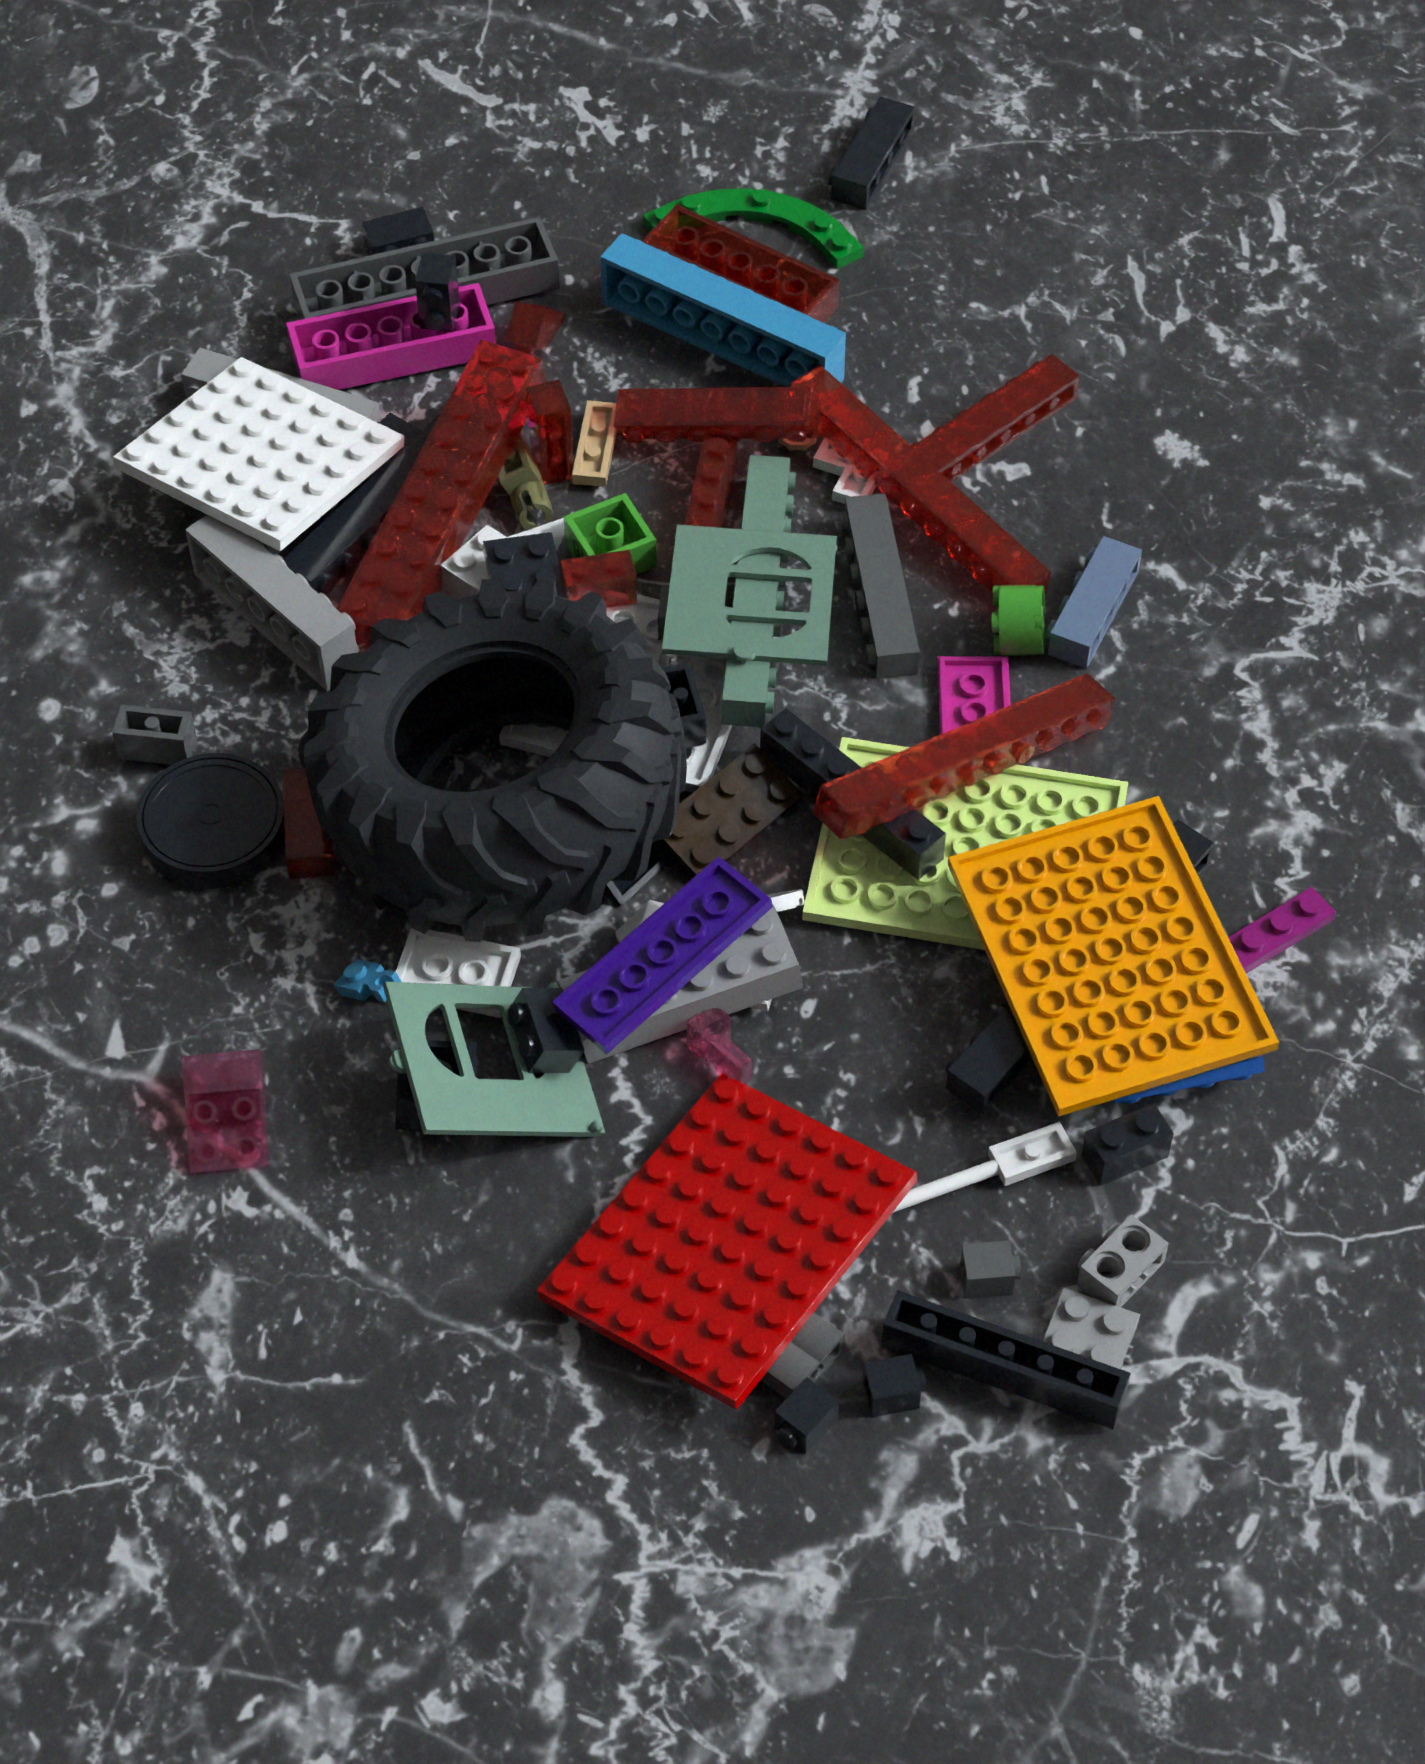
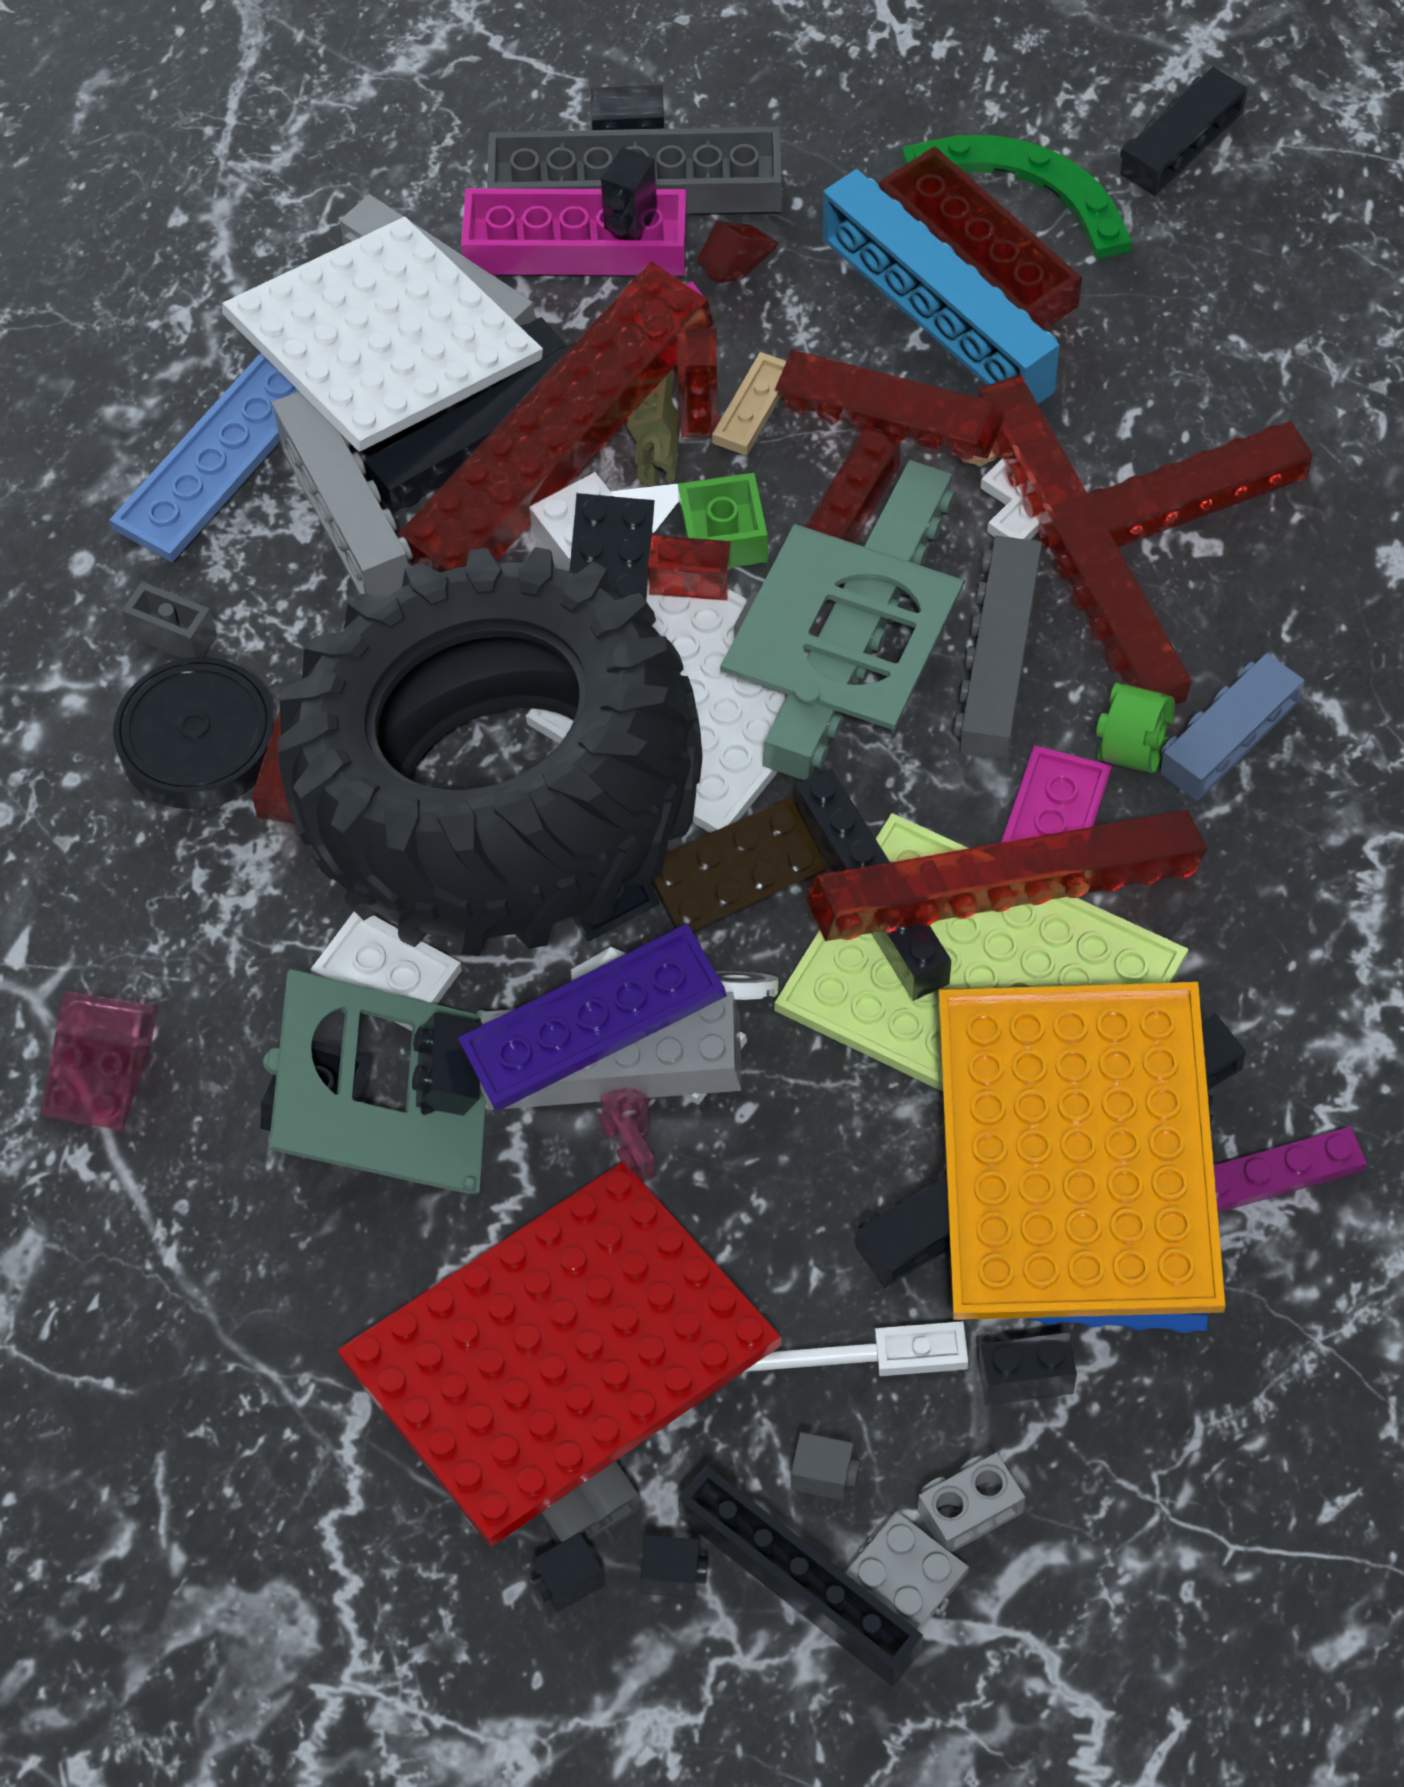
camera: 20 degrees right, 5 degrees up
(137, 595) = (206, 464): none -> medium blue plate
(365, 979) = (288, 951): dark azure plate -> none
(689, 703) = (723, 735): black brick -> none

